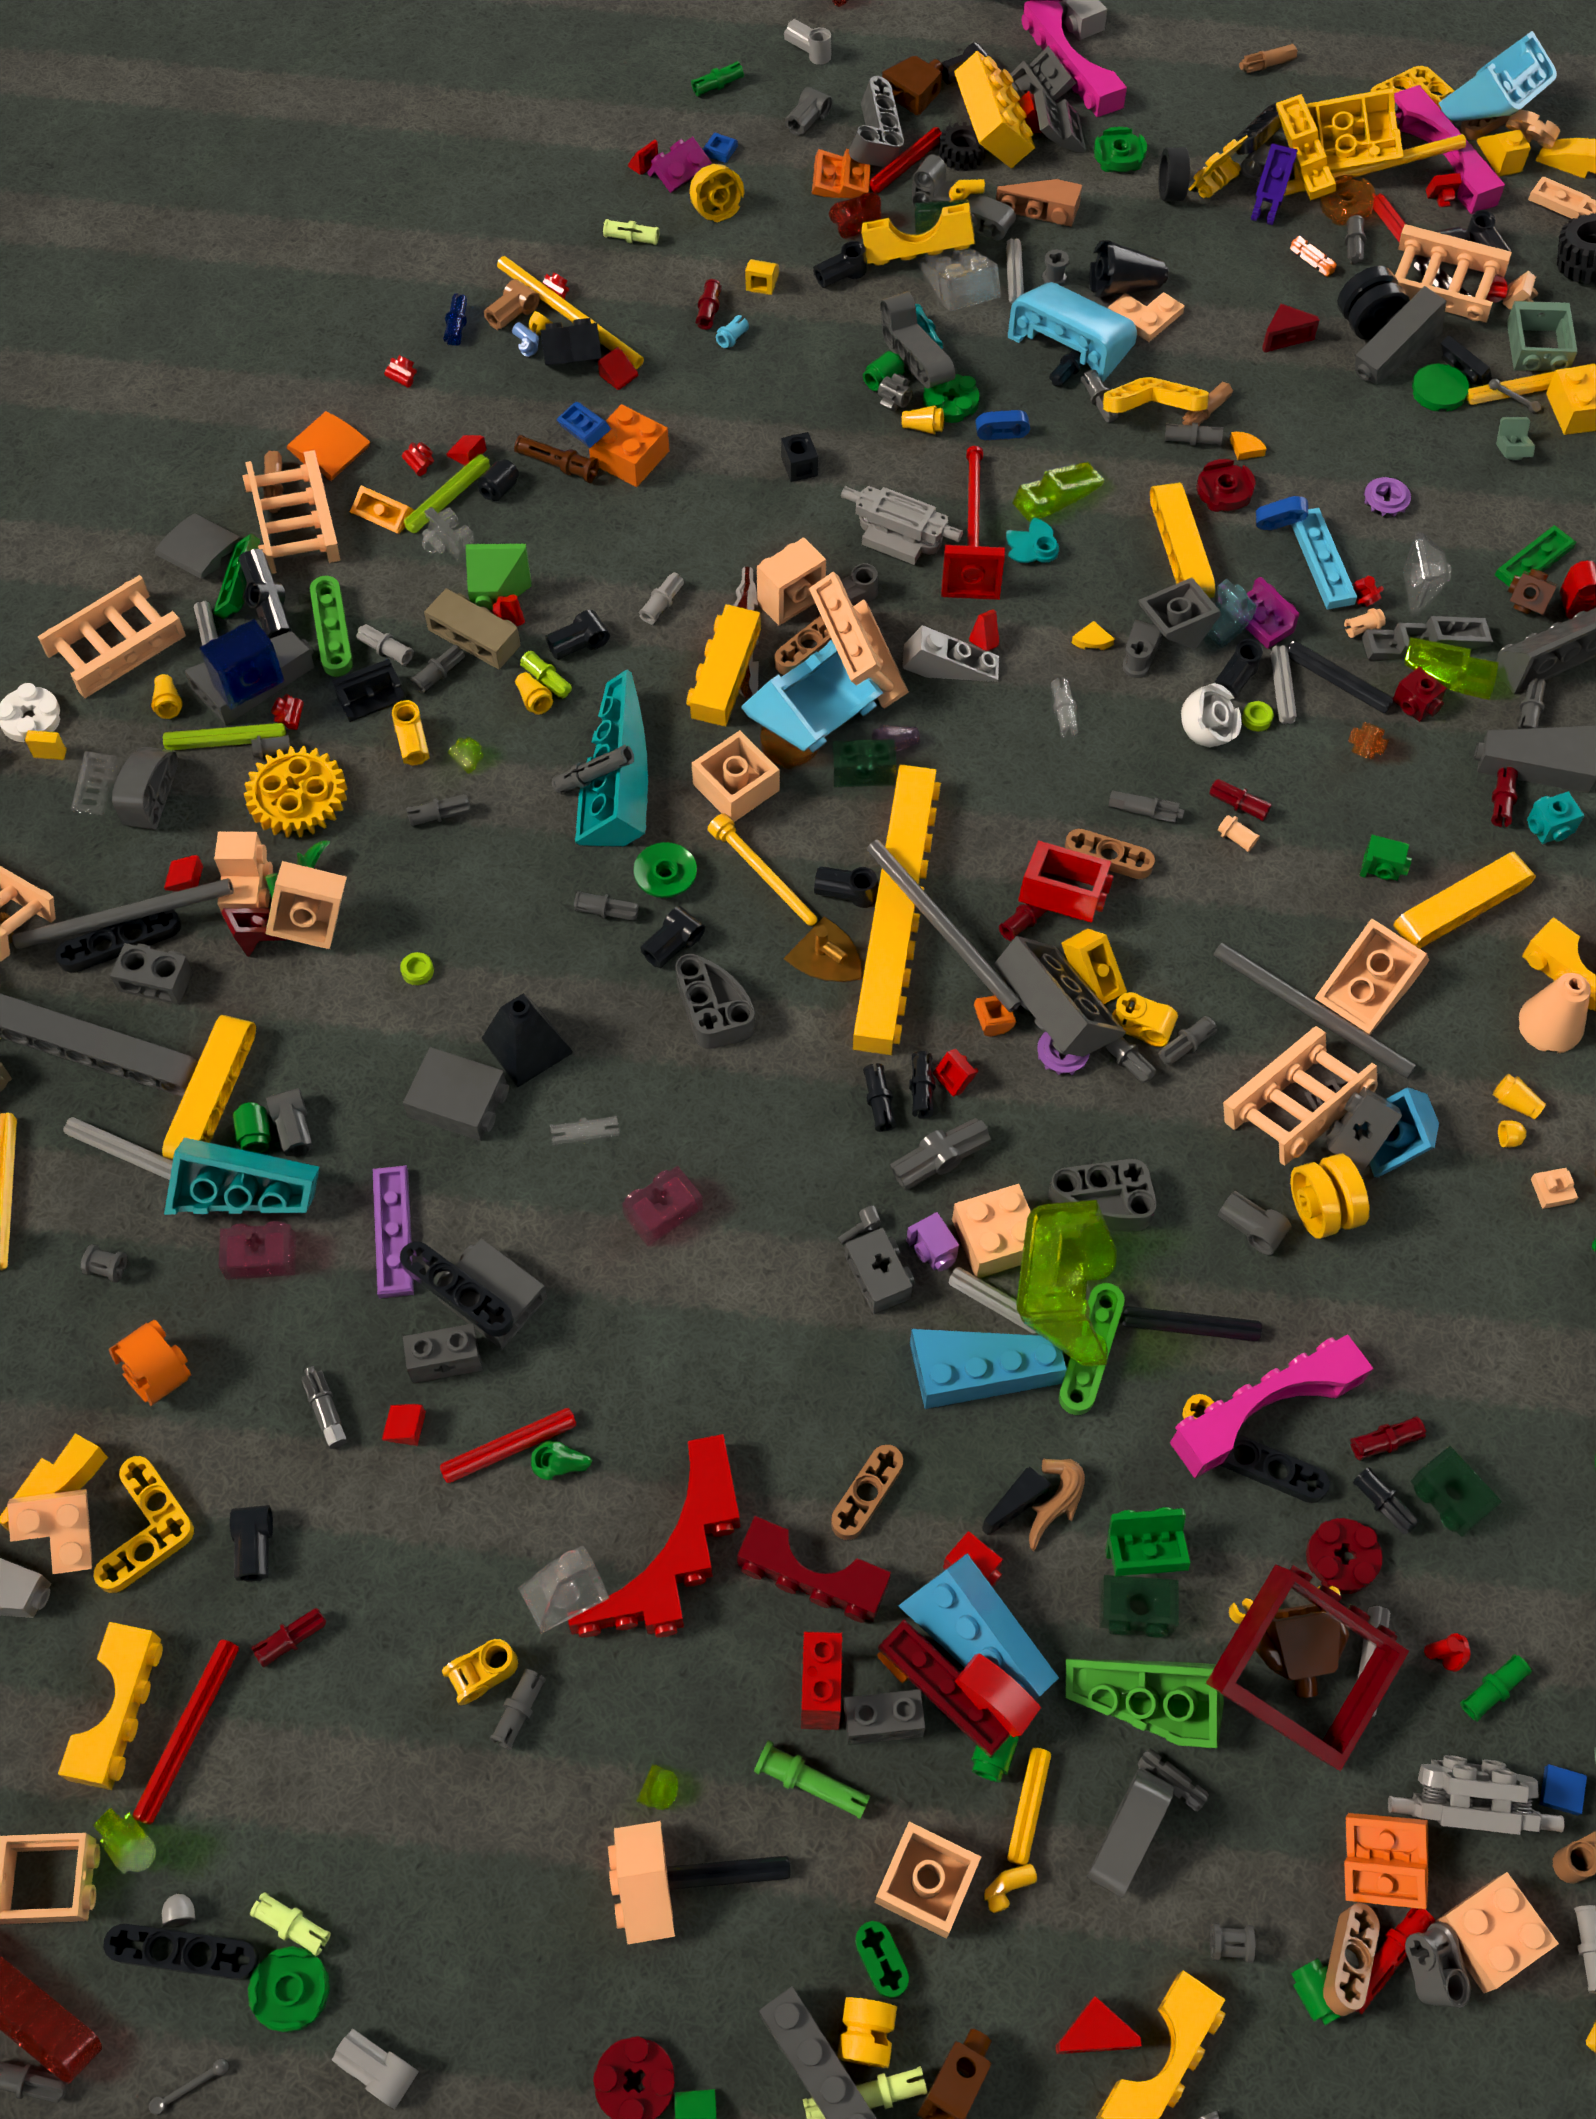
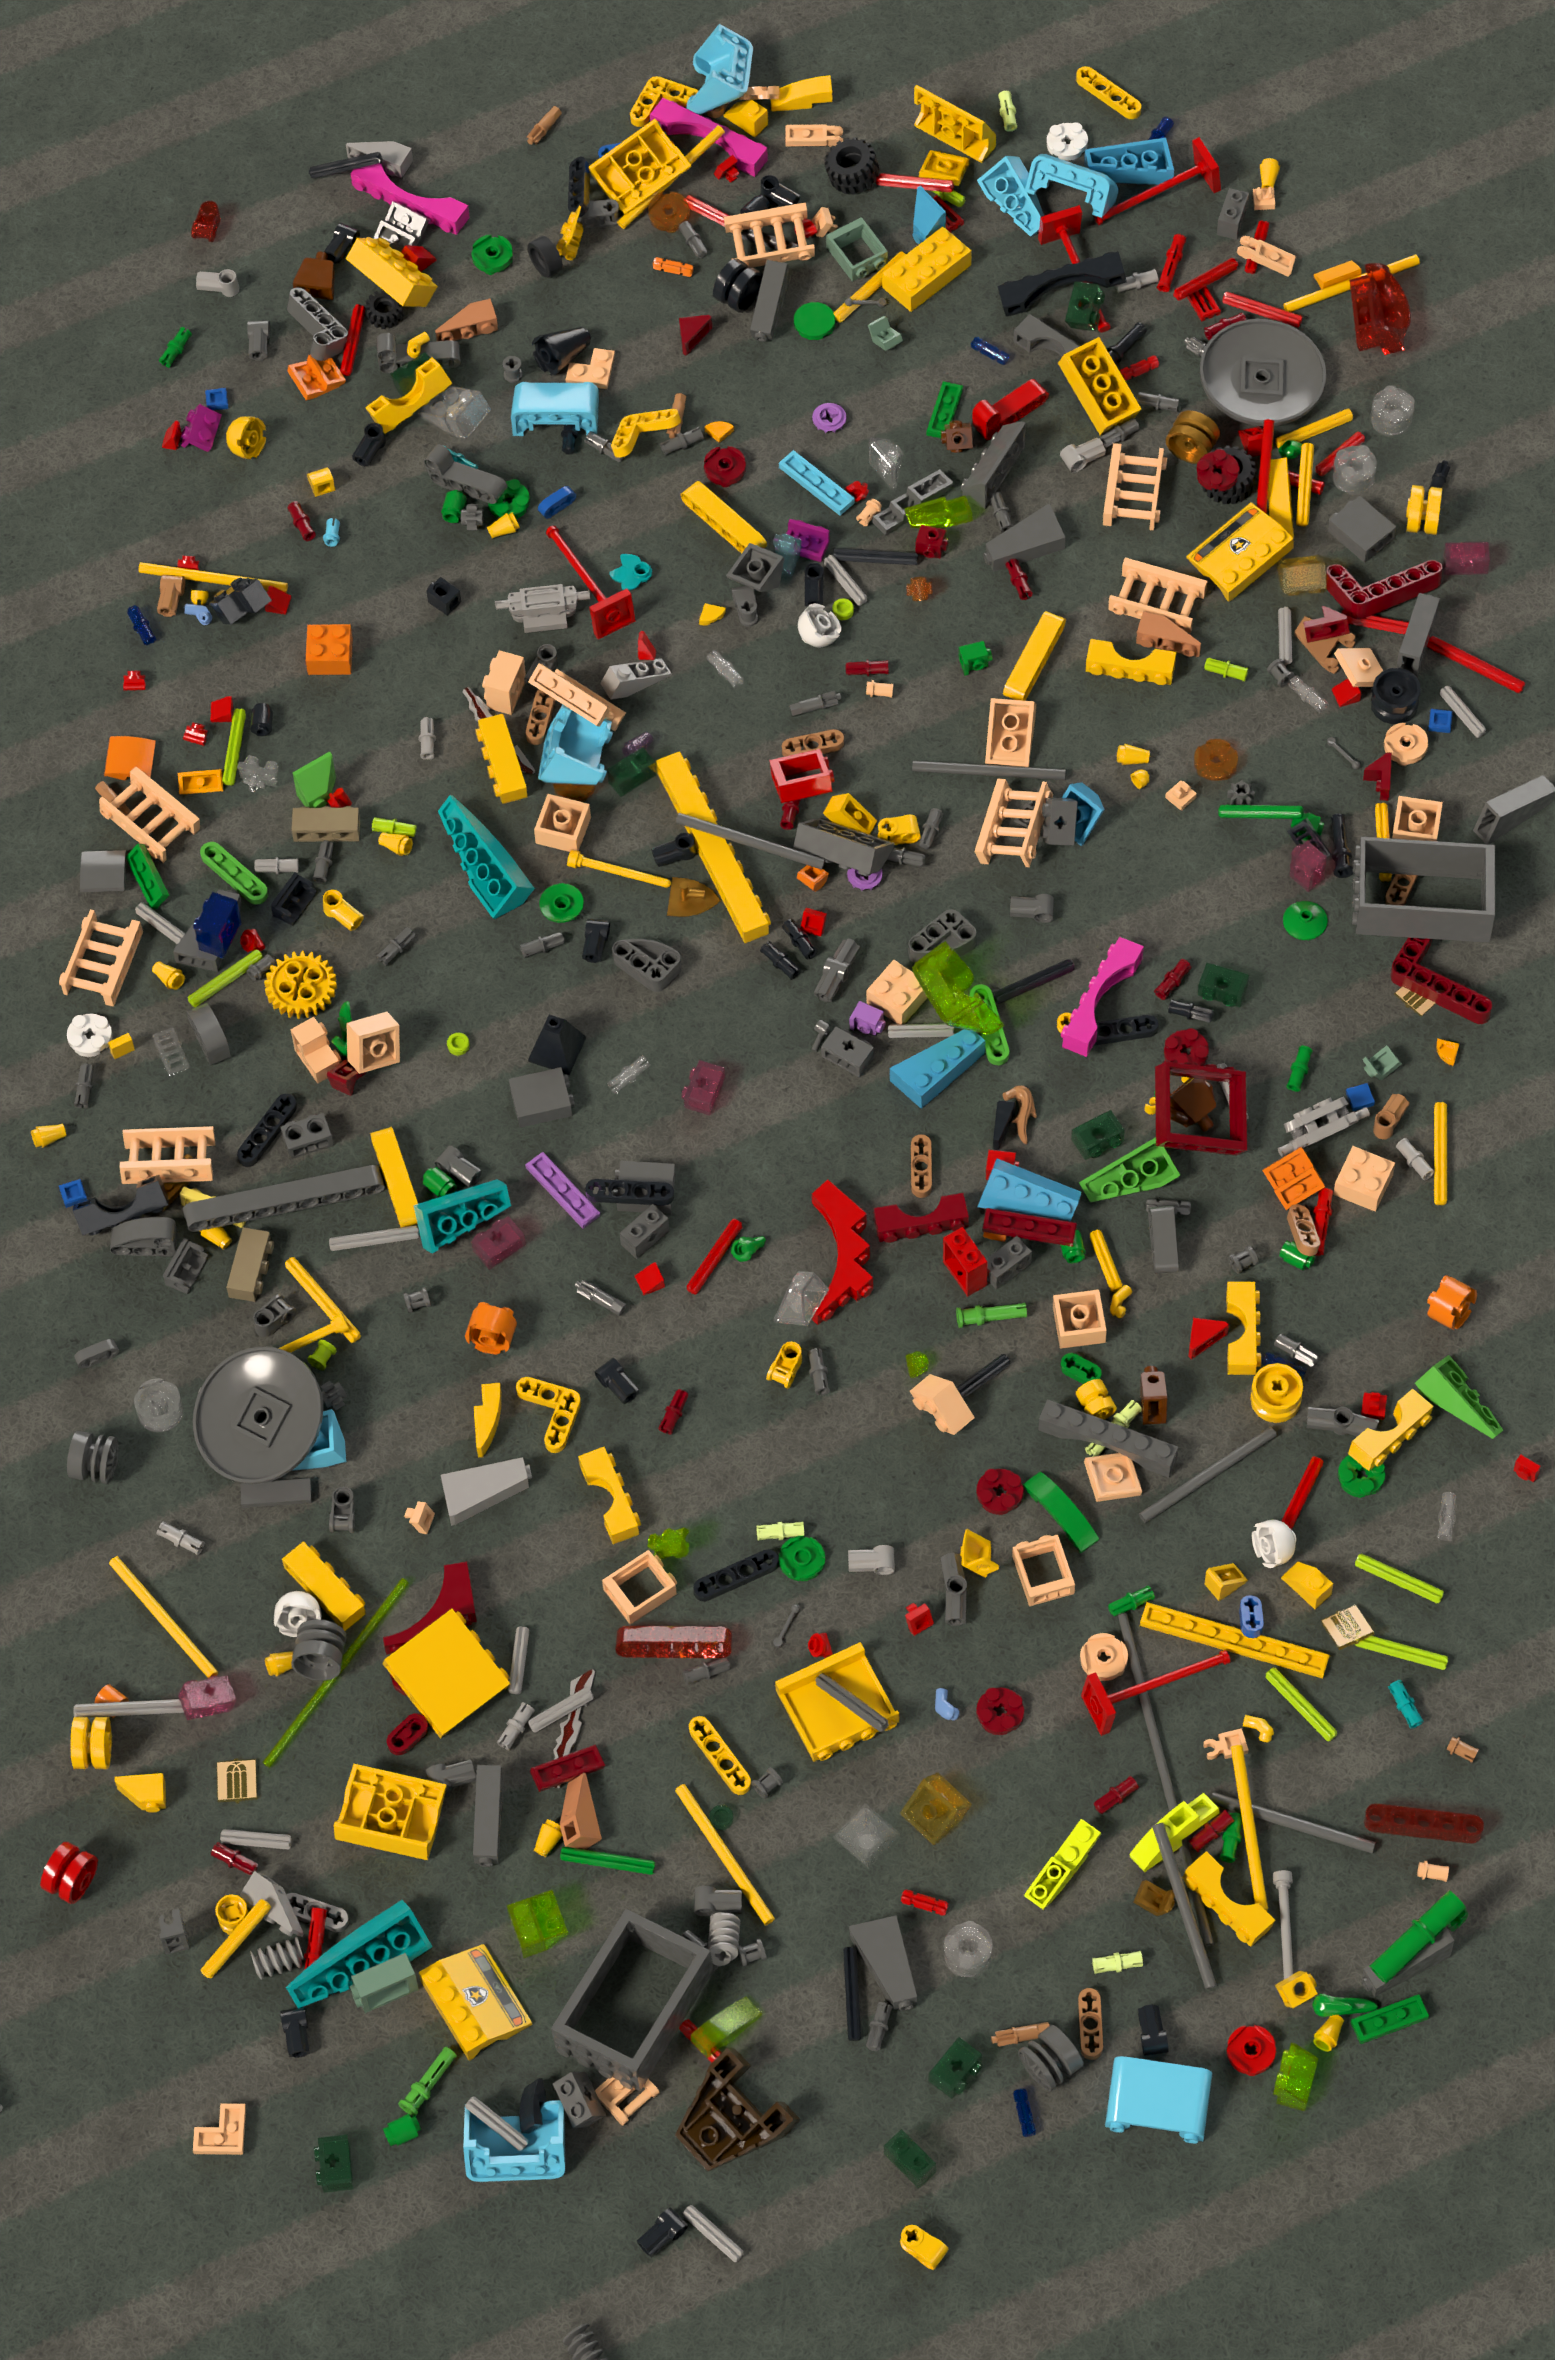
camera: 30 degrees left, 0 degrees up
(57, 1516) = (516, 1427): light nougat brick -> none
(123, 913) = (265, 1109): dark grey piece -> none
(177, 1911) = (720, 1559): light grey hinge -> none
(184, 873) = (273, 1071): red slope -> none
(185, 1732) = (655, 1481): red axle -> none
(264, 593) = (171, 869): black piece -> none
(466, 753) = (384, 903): clear neon green plate -> none
(565, 460) = (259, 686): reddish brown pin -> none
(583, 424) = (292, 652): blue tile -> none
(584, 632) = (396, 788): black piece -> none
(584, 773) = (470, 874): dark grey pin -> none
(631, 232) = (221, 492): yellowish green pin -> none
(857, 211) = (349, 403): clear red piece -> none
(995, 1689) = (1055, 1209): red slope -> none
(1014, 269) = (485, 385): light grey axle -> none
(1056, 490) = (622, 528): clear neon green slope -> none
(1059, 122) = (438, 255): dark grey slope -> none
(1147, 1542) = (1083, 1099): green bracket -> none
(1274, 180) = (615, 226): dark purple hinge -> none
(1282, 513) = (774, 467): blue beam -> none
(1303, 136) = (620, 190): yellow slope -> none
(1329, 1195) = (1064, 868): yellow wheel -> none
(1438, 1969) = (1347, 1210): dark grey piece -> none
(1453, 1651) = (1267, 1064): red plate -> none
(1472, 367) = (829, 297): black plate -> none
(1555, 817) = (1055, 576): teal brick -> none
(1556, 1014) = (1125, 696): light nougat cone -> none

